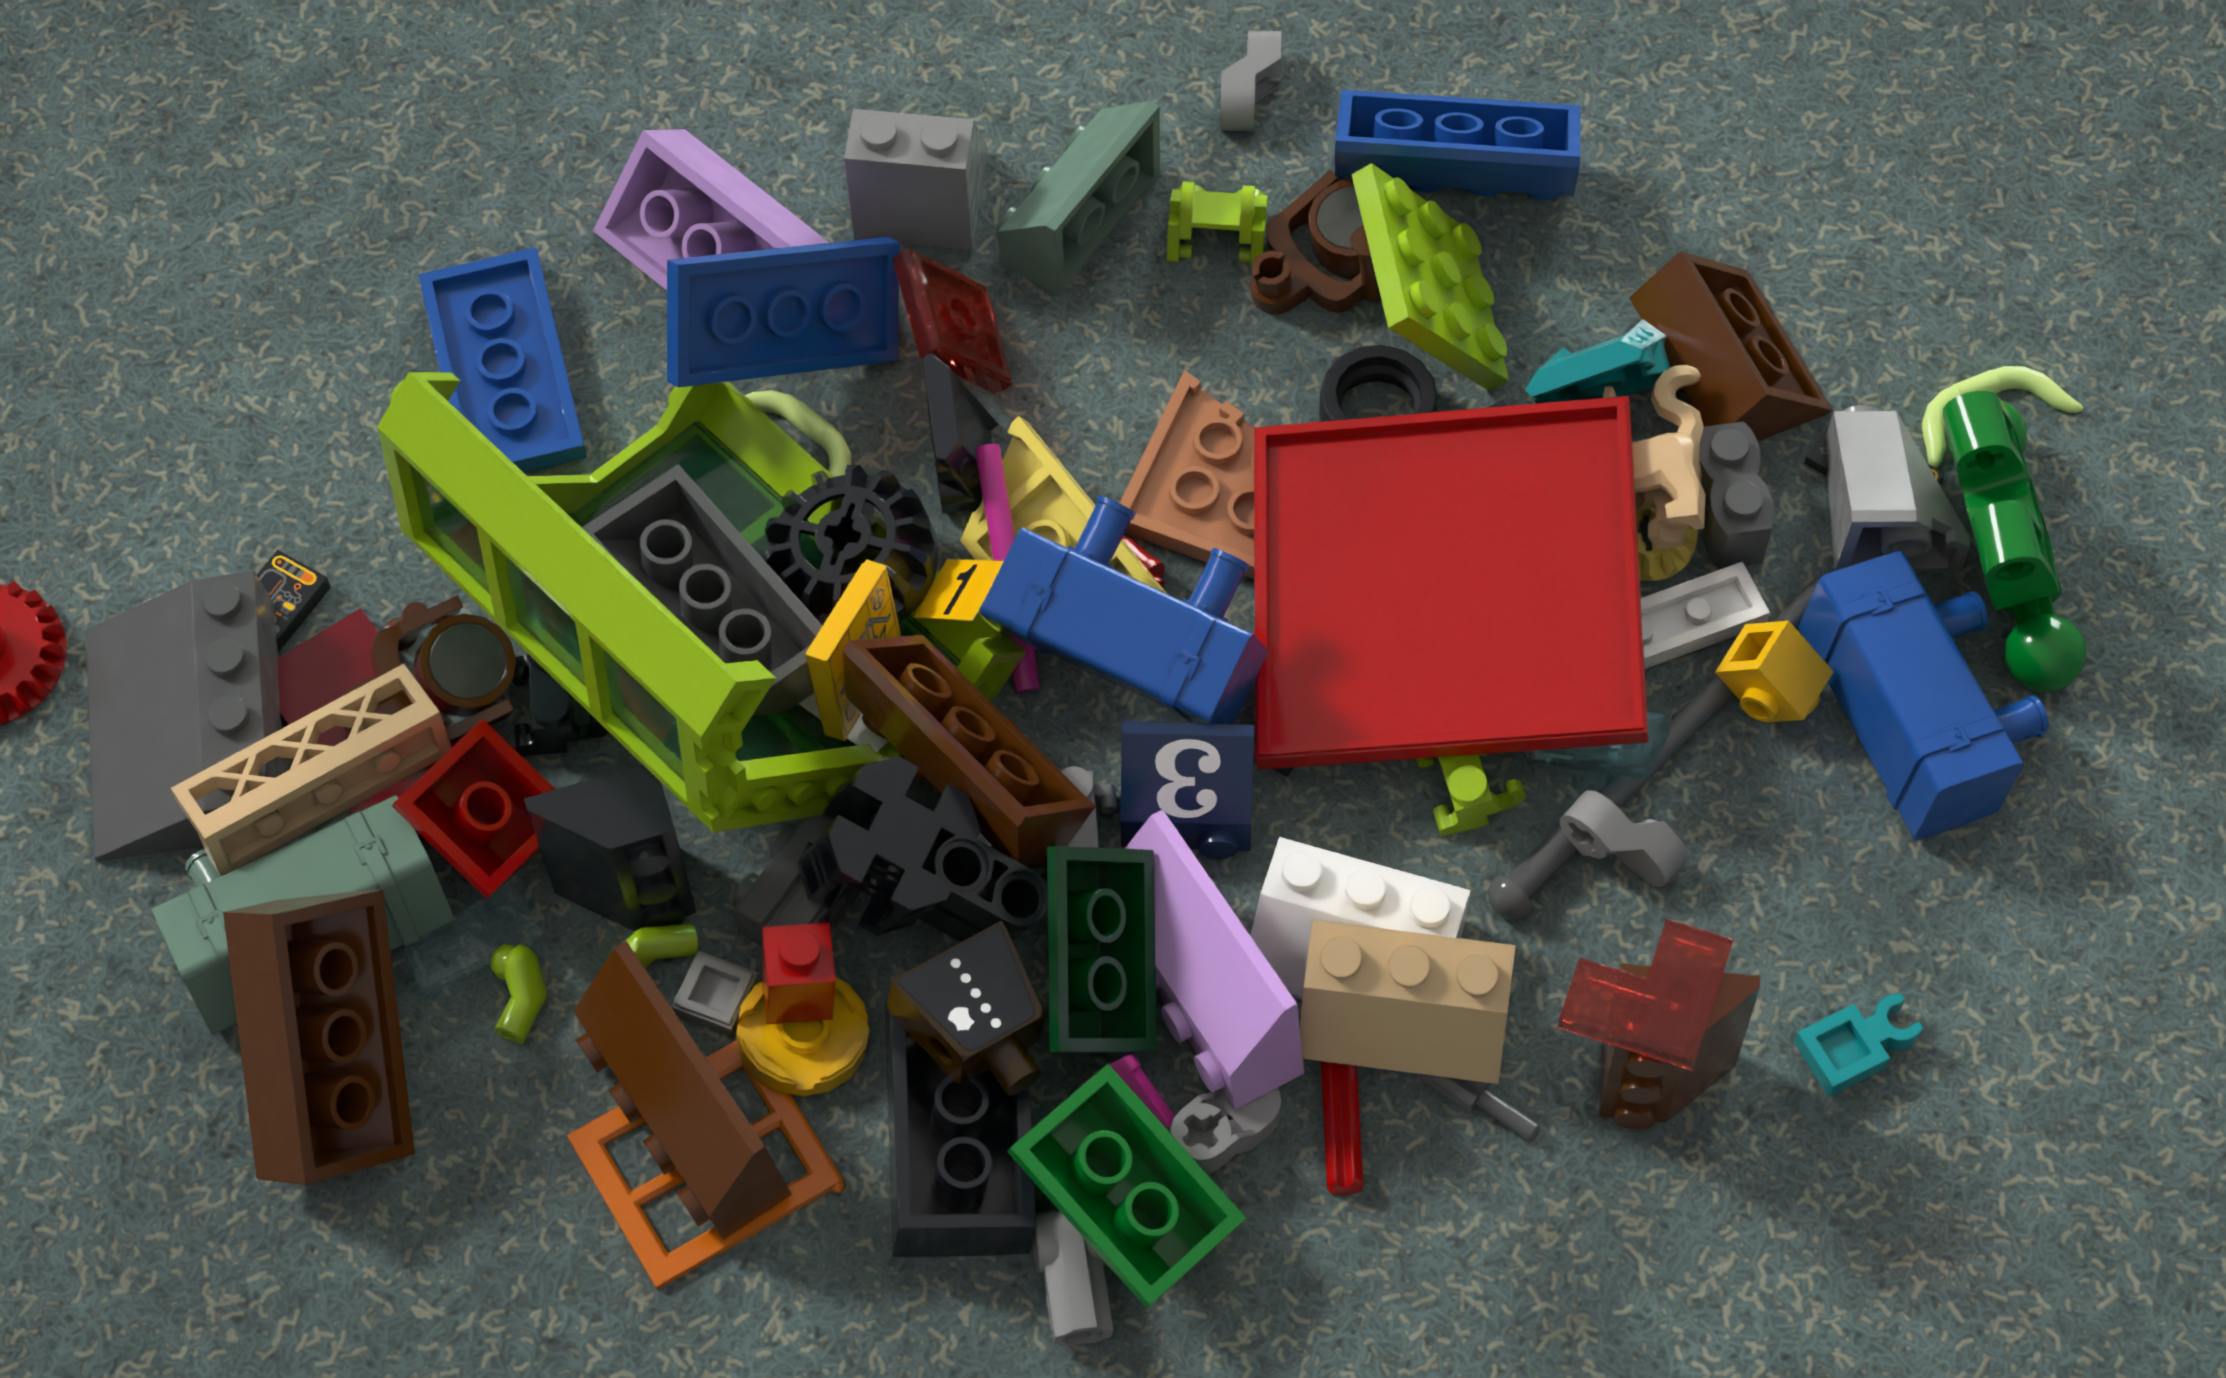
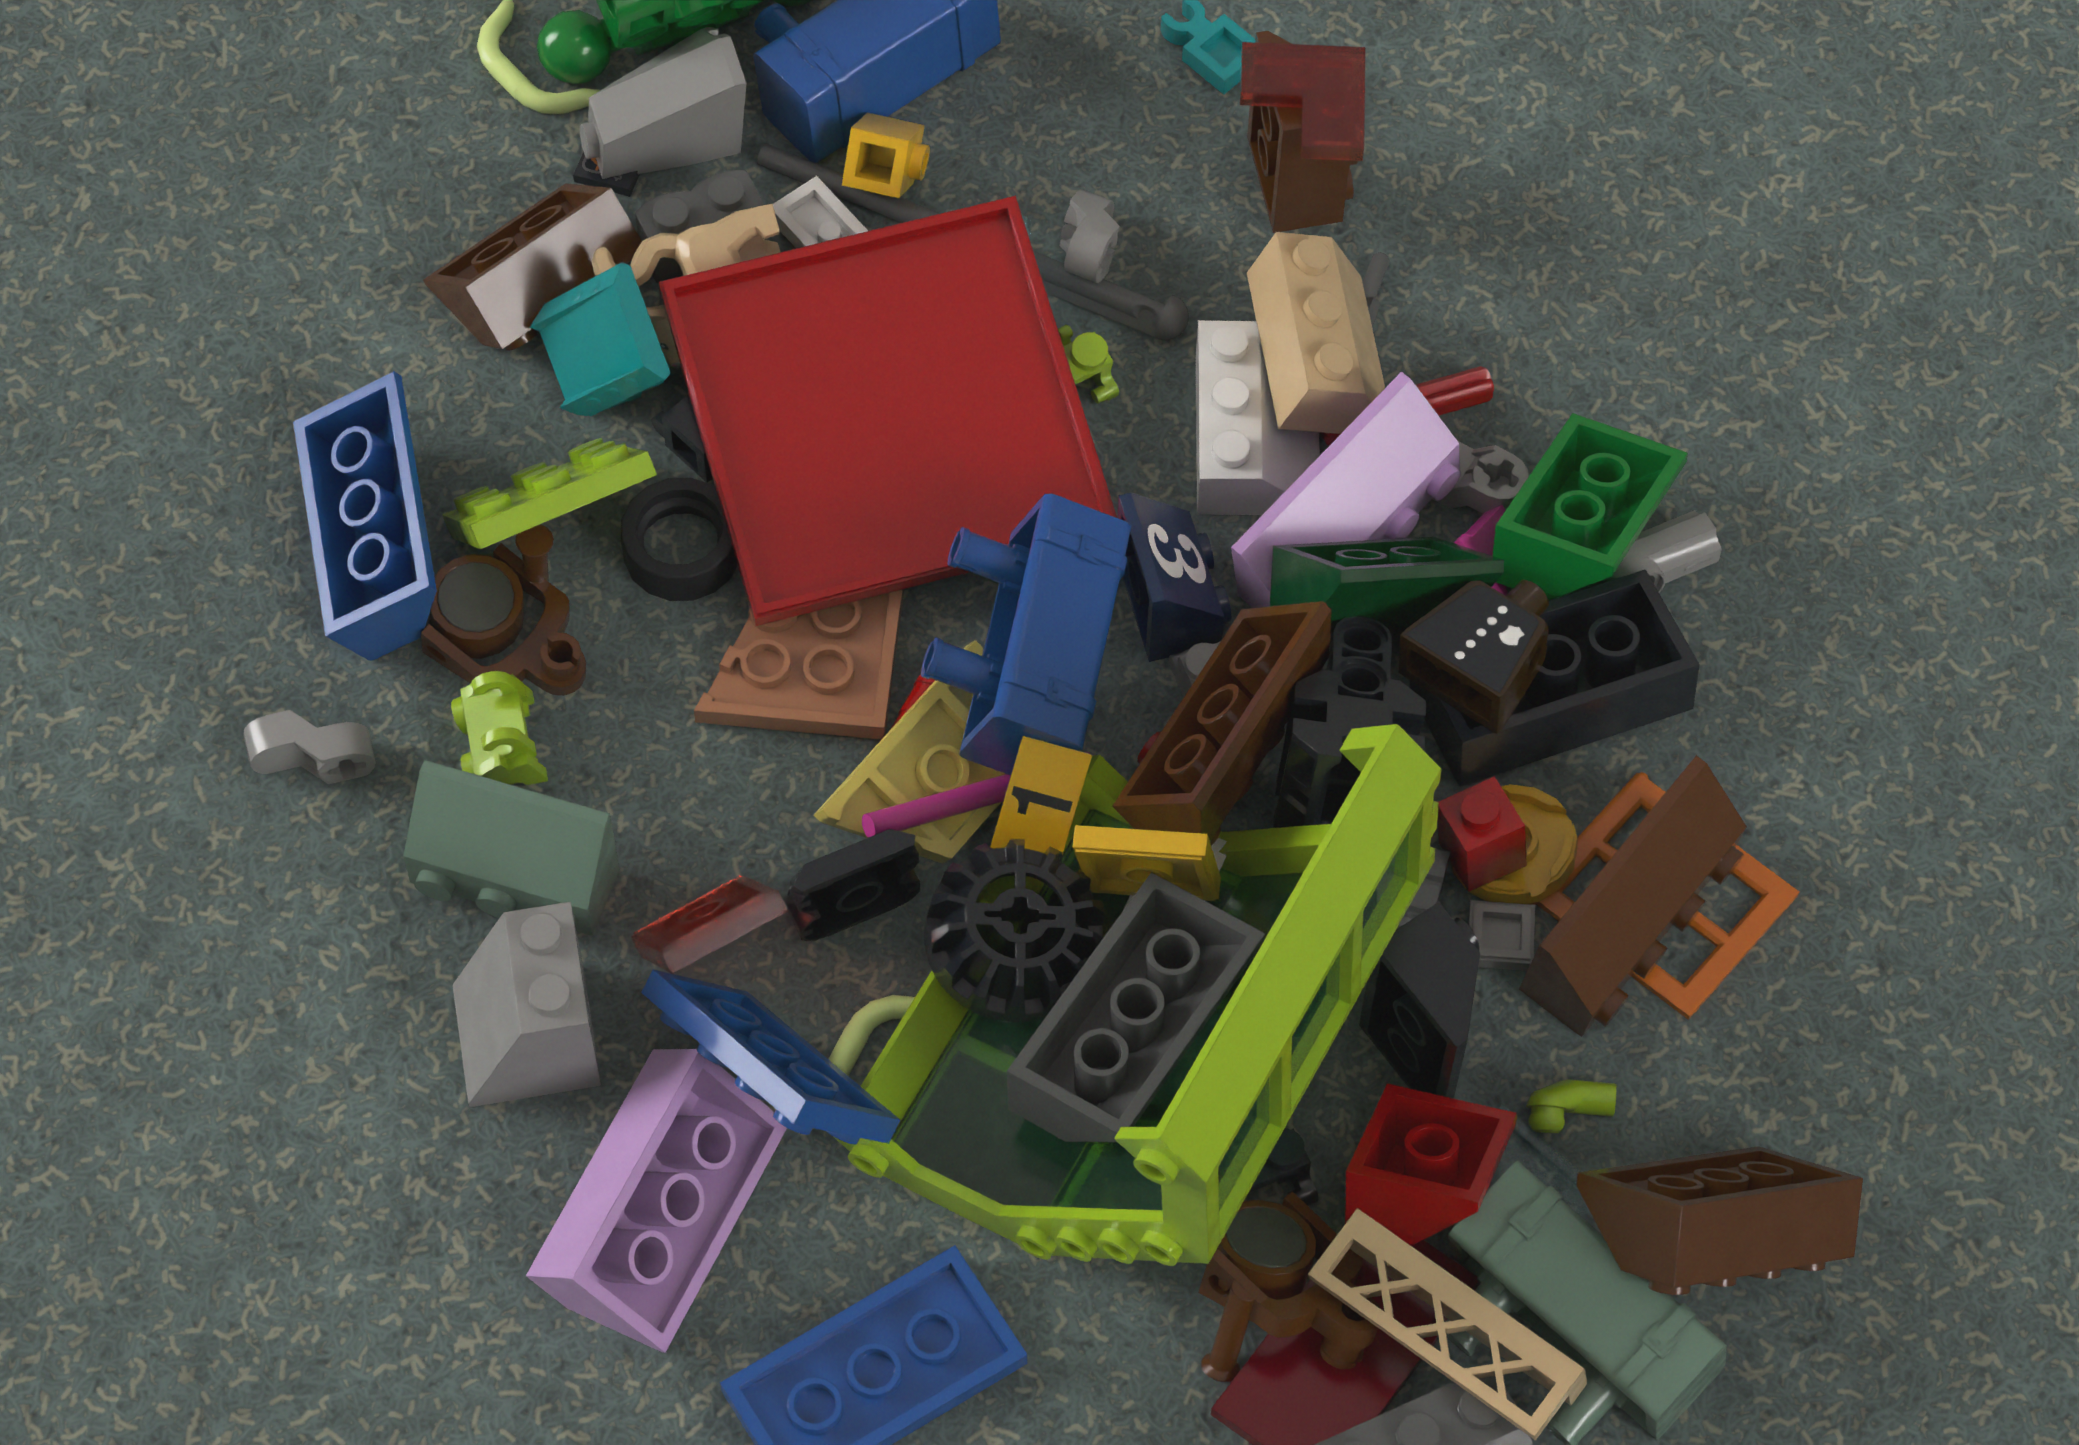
camera: 110 degrees left, 0 degrees up
(664, 942) = (1501, 1016): lime arm -> none

